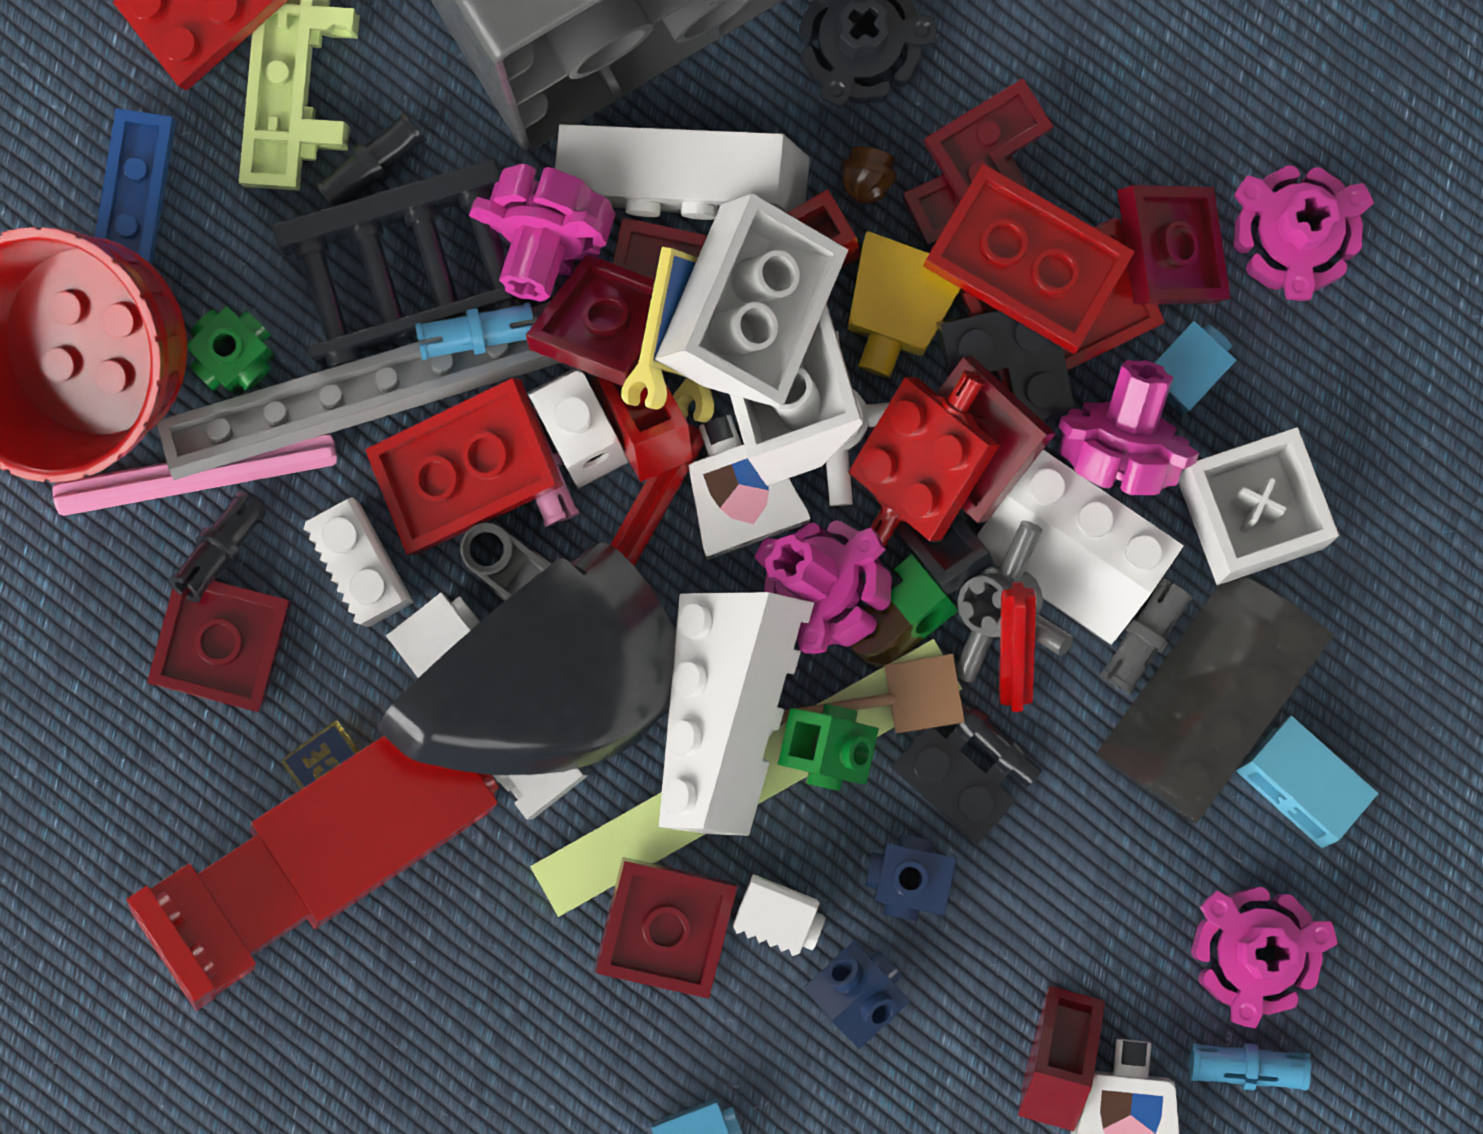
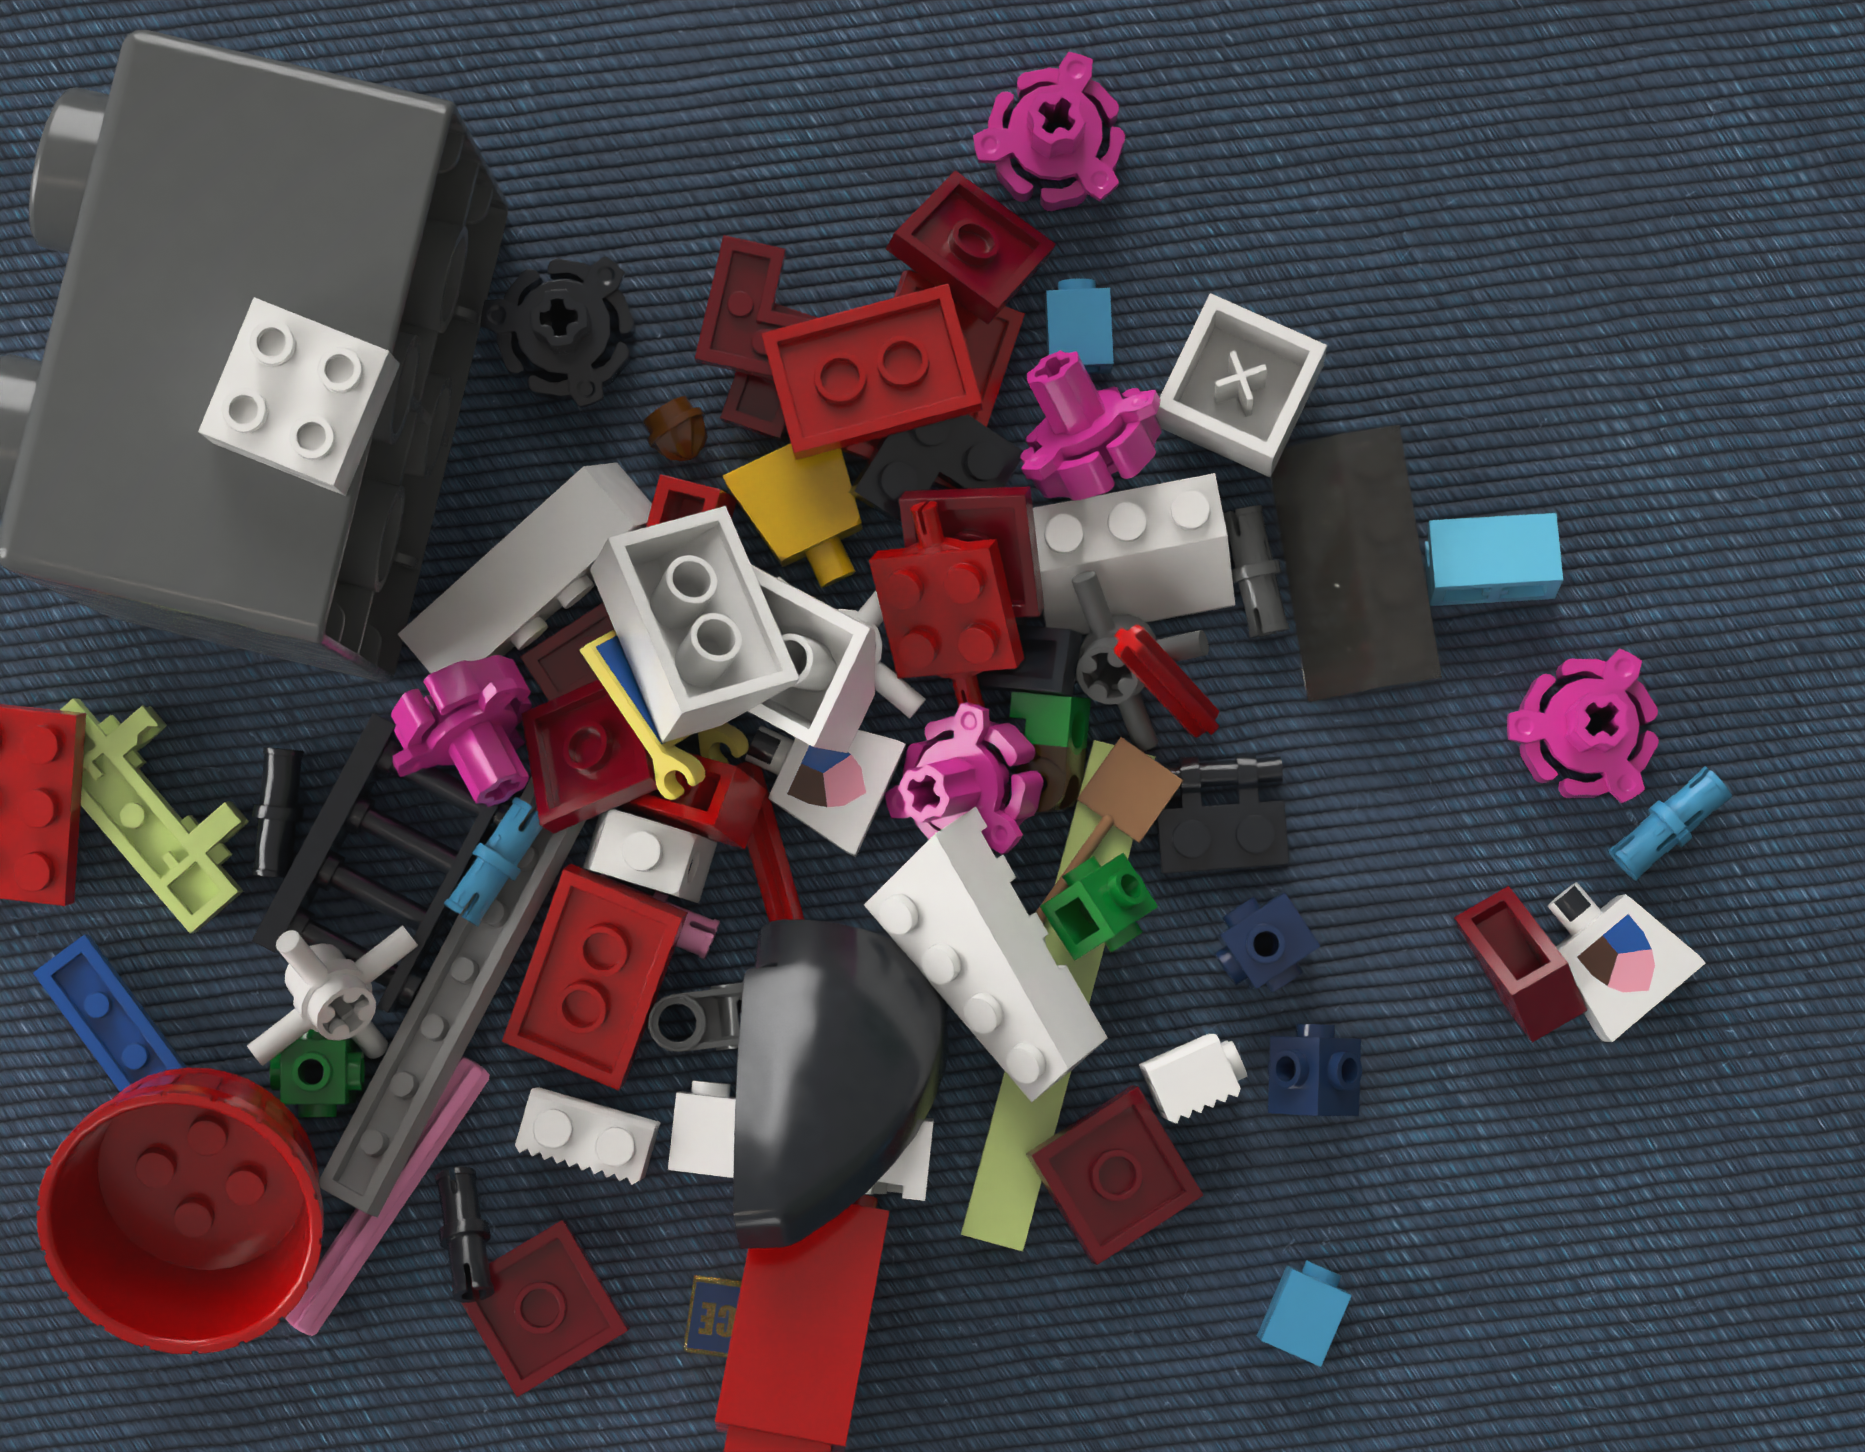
camera: 45 degrees left, 0 degrees up
(287, 309) = (331, 994): none -> white bar

